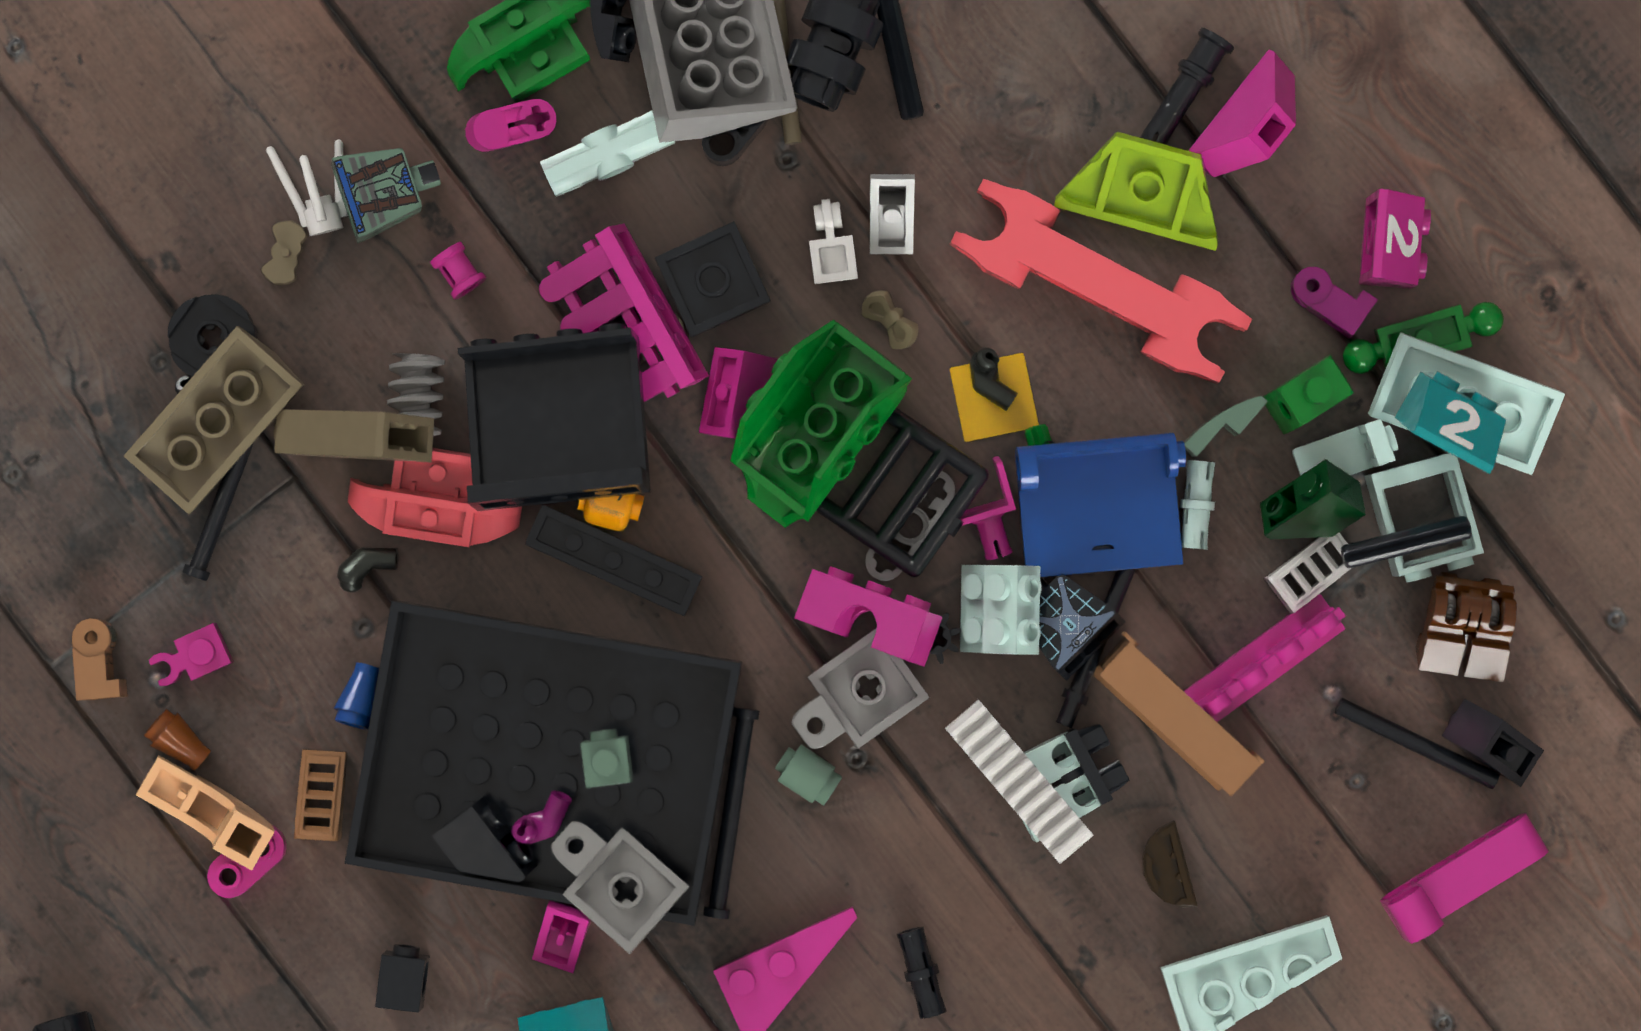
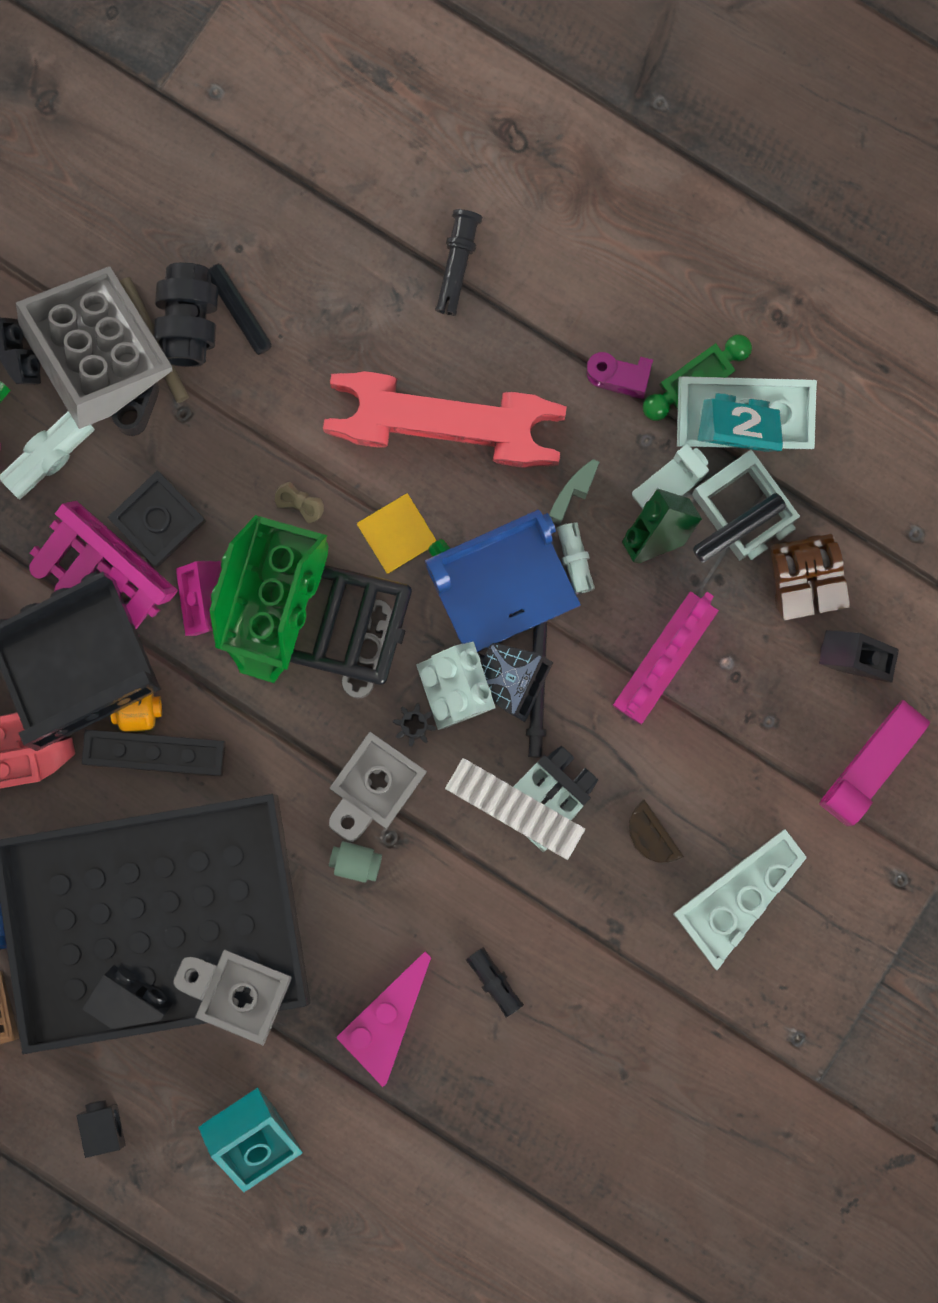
camera: 20 degrees left, 5 degrees down
(542, 823) = (165, 969): magenta arm -> none
(561, 936) = (210, 1051): dark pink slope -> none
(606, 759) = (193, 901): sand green brick -> none
(731, 813) = (308, 912): black bar -> none
(835, 256) = (241, 469): white plate -> none
(892, 213) = (272, 422): light grey slope -> none
(902, 627) = (386, 724): dark pink arch -> none
(986, 378) = (385, 520): pearl dark grey arm -> none
(989, 517) = (424, 621): dark pink bracket -> none
(1145, 189) = (454, 340): lime wing -> none
(1176, 717) = (615, 719): medium nougat piece -> none
(1251, 120) = (512, 265): dark pink slope -> none
(1284, 591) = (664, 599): white slope -> none
(1308, 394) = (627, 447): green torso -> none
(1394, 239) = (649, 313): dark pink slope -> none
(1417, 743) = (803, 677): black bar -> none

